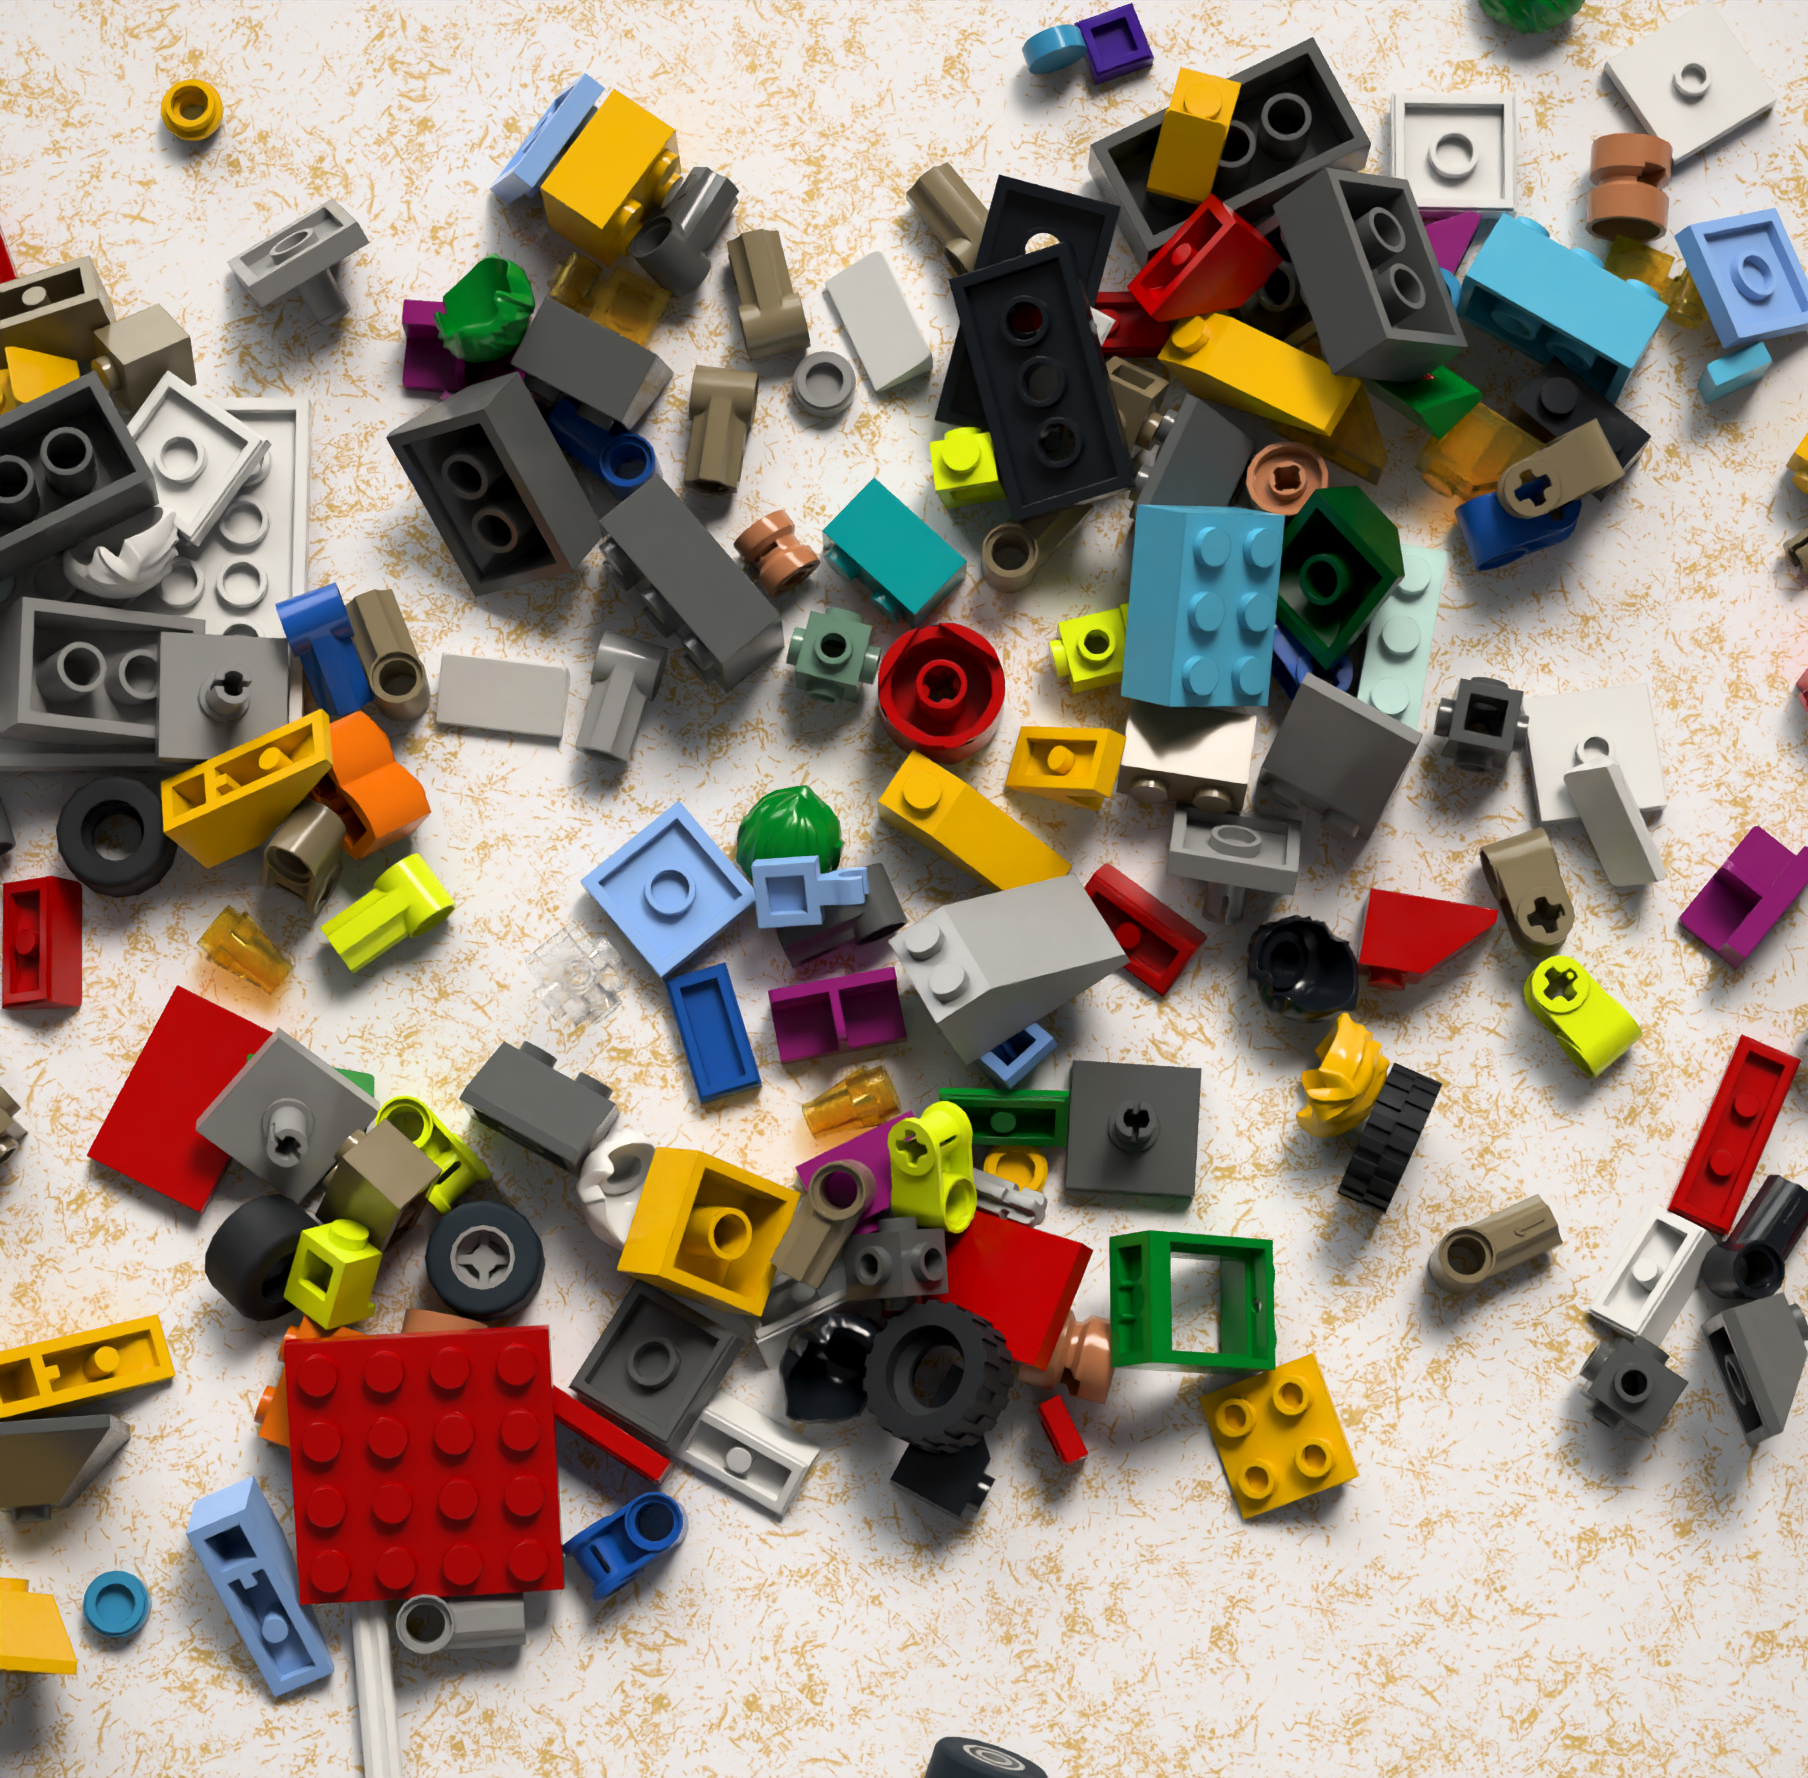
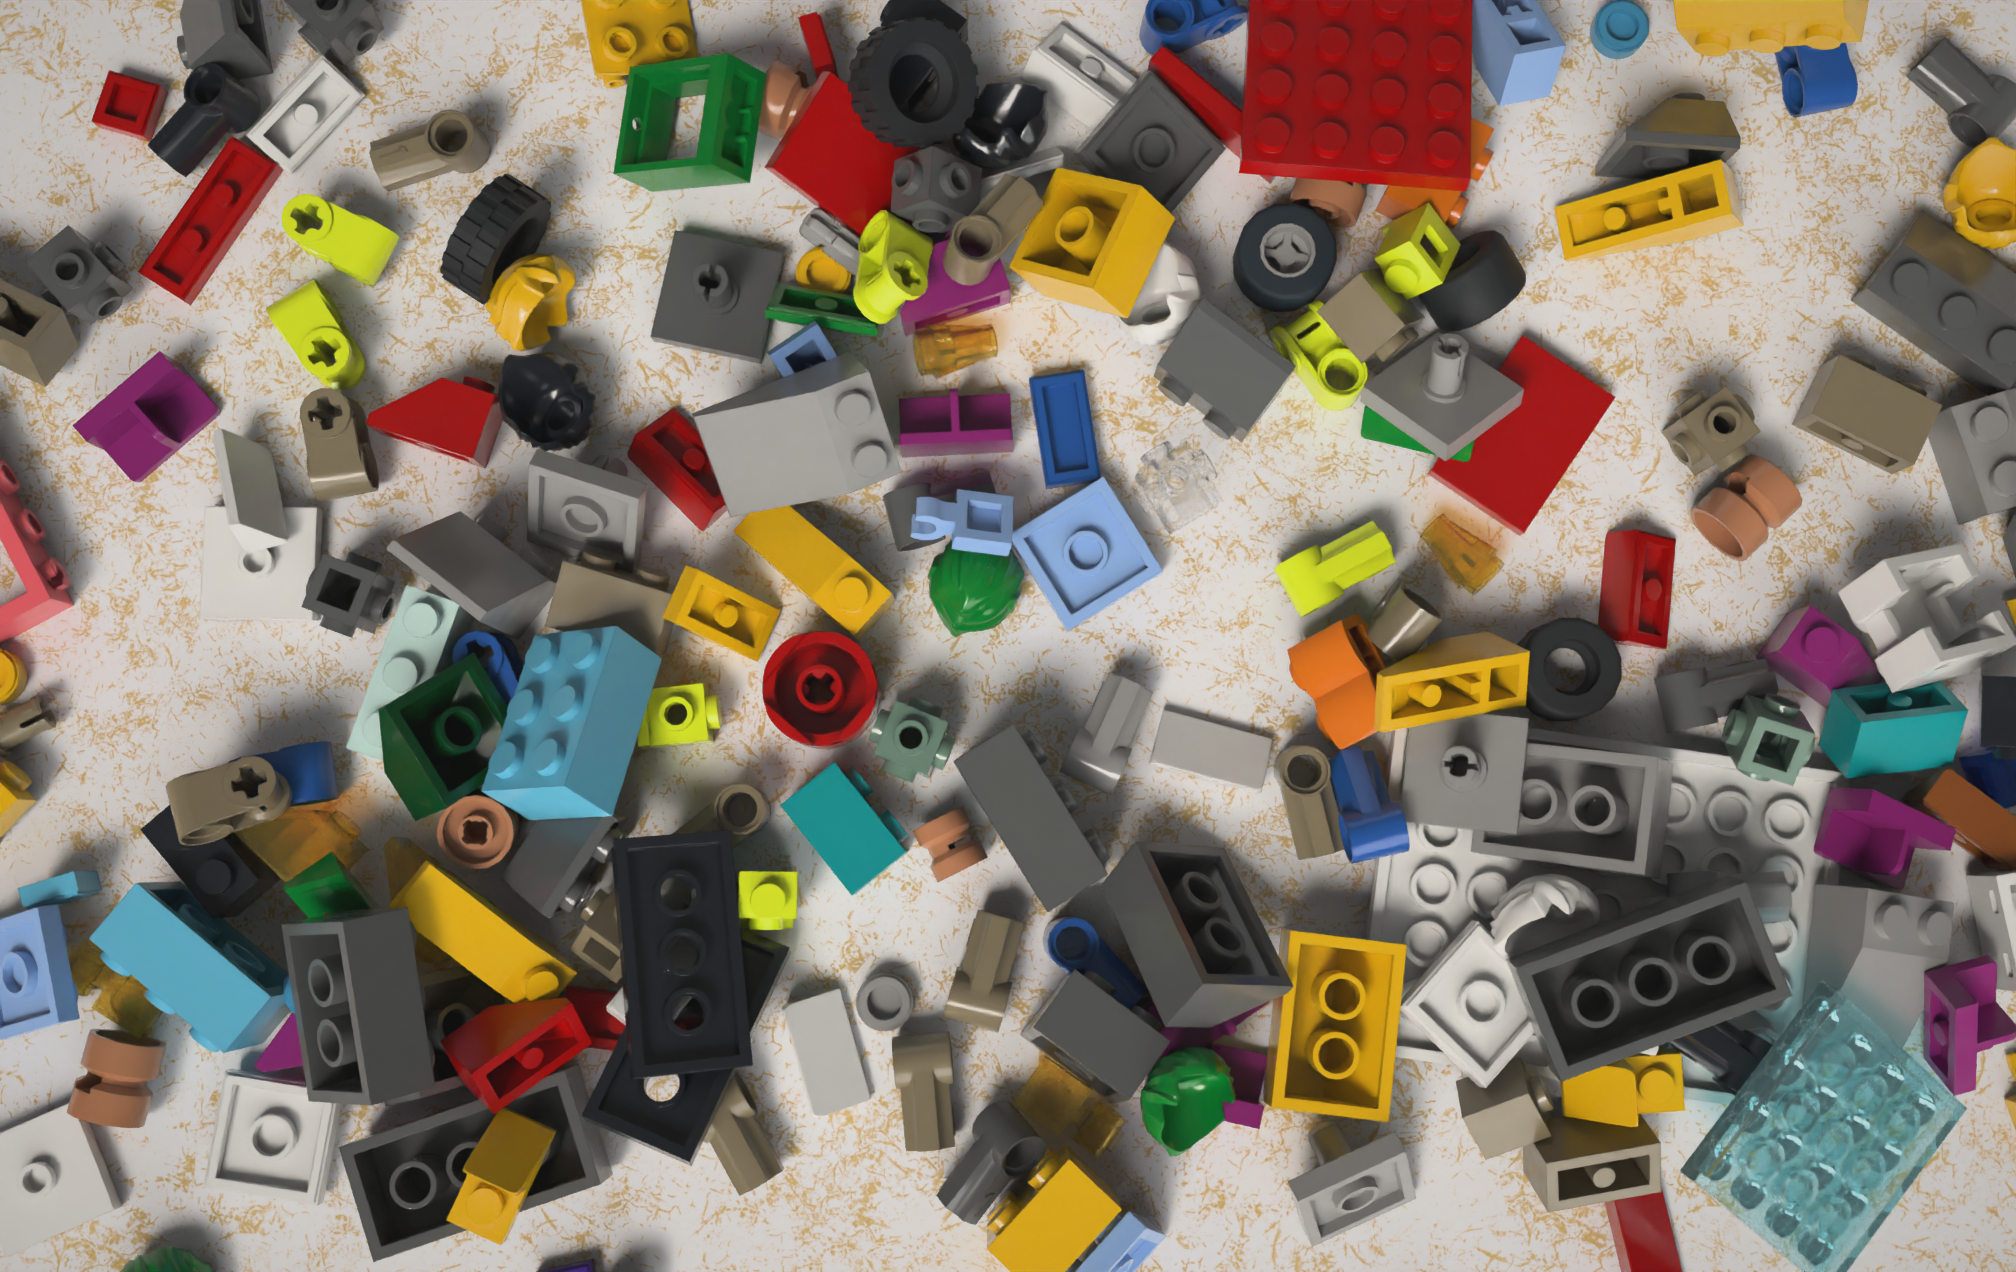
camera: 175 degrees left, 5 degrees up
(329, 415) = (1335, 1026): none -> yellow slope
(1561, 1123) = (344, 240): none -> neon yellow piece

